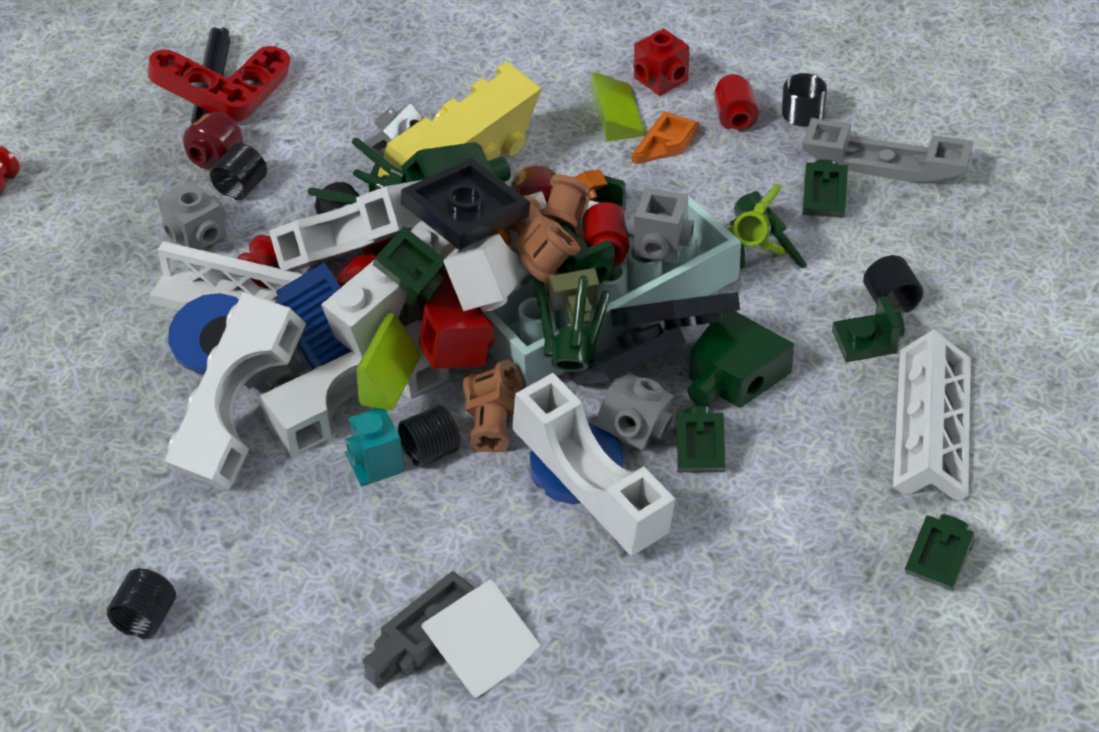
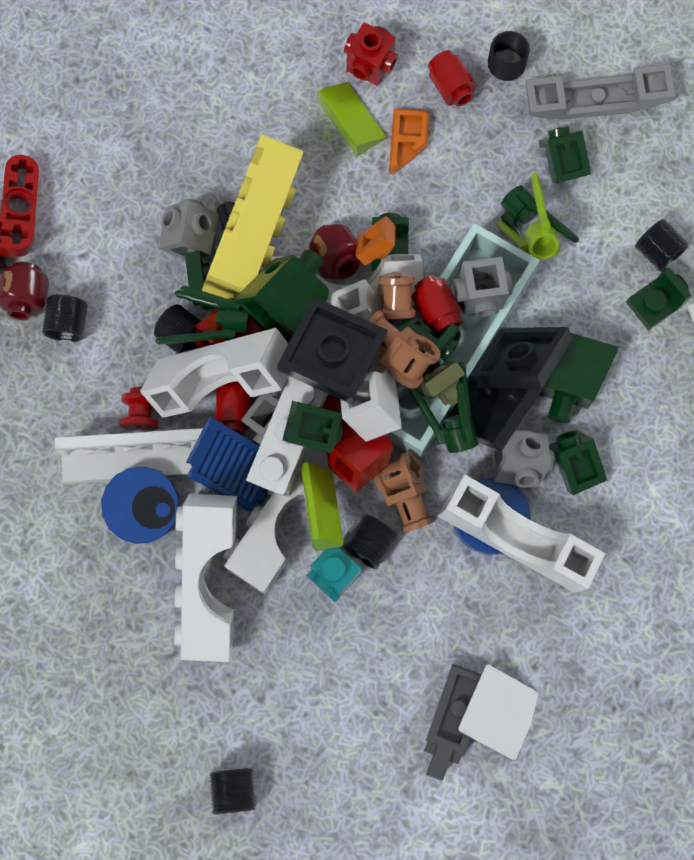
camera: 25 degrees left, 30 degrees up
(192, 216) = (57, 390): light grey brick -> none

